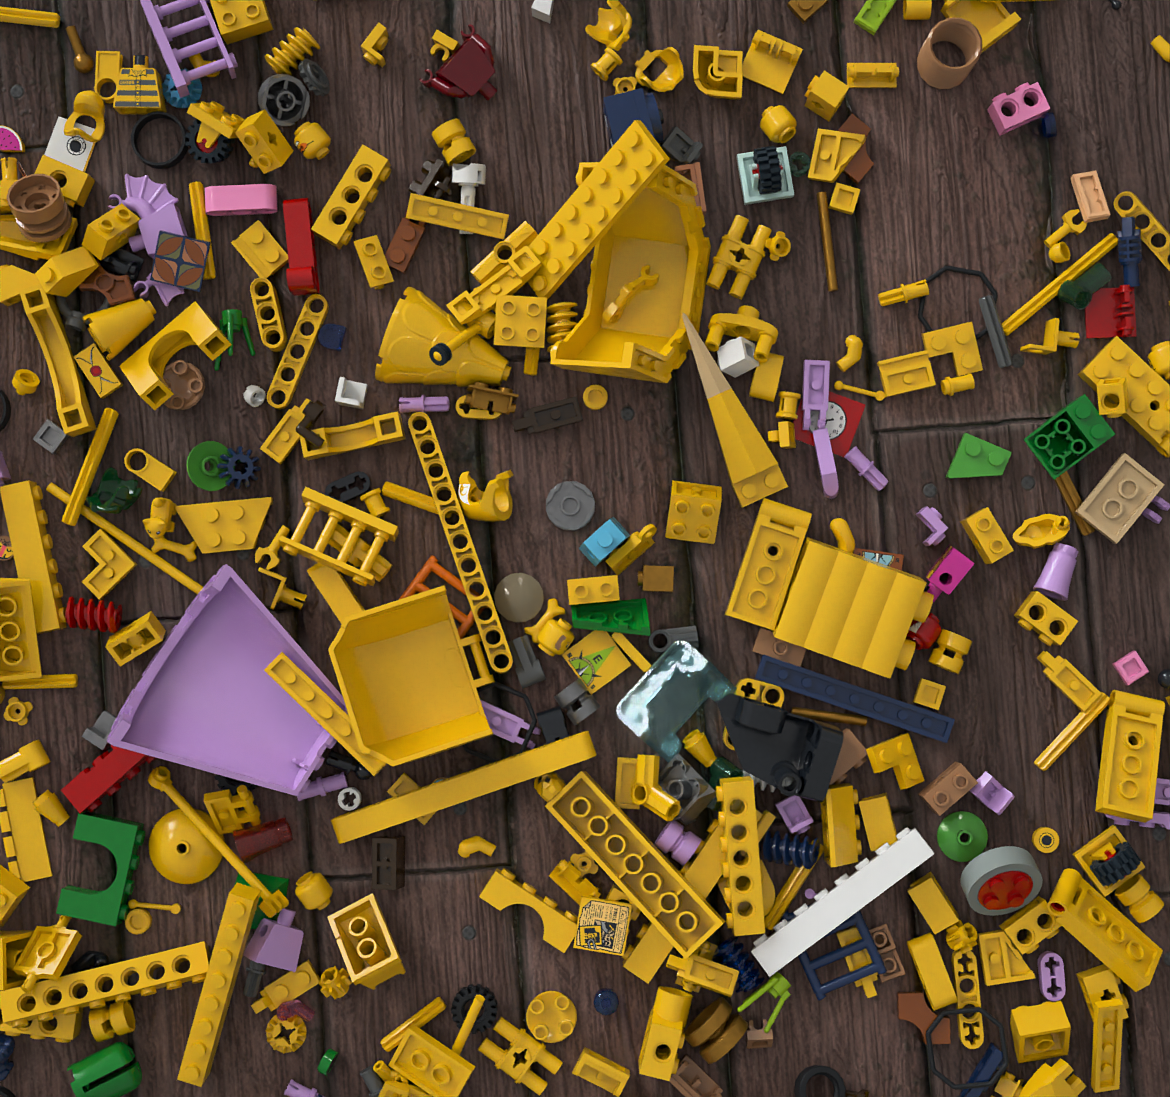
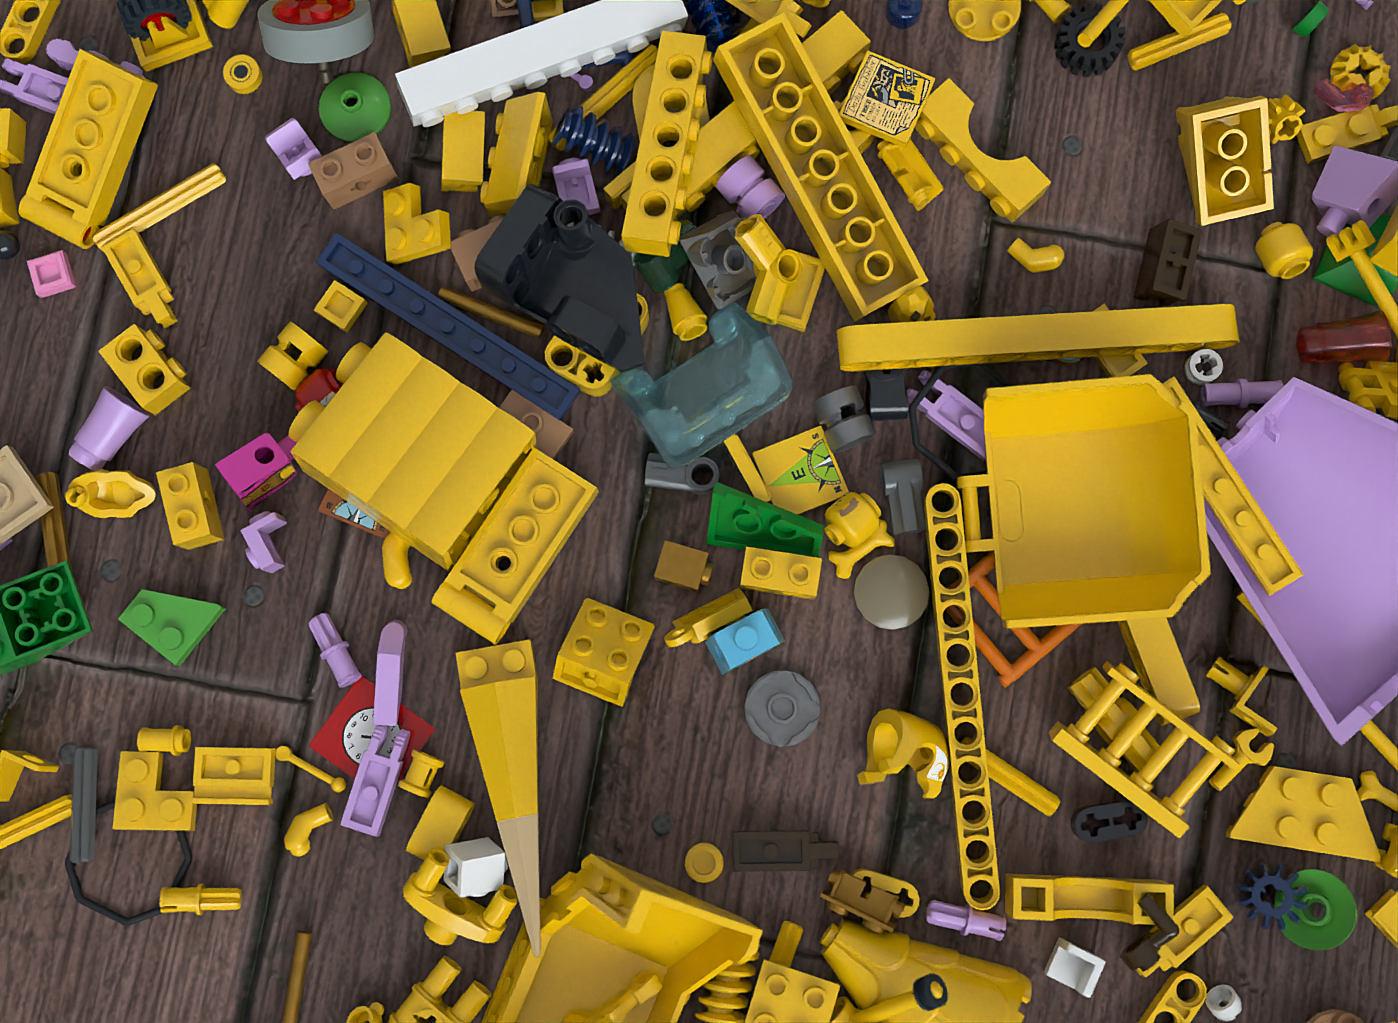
camera: 165 degrees left, 5 degrees down
(375, 503) = (1074, 786): yellow bush -> none
(577, 860) = (897, 202): yellow plate -> none
(784, 435) = (438, 729): yellow tile -> none

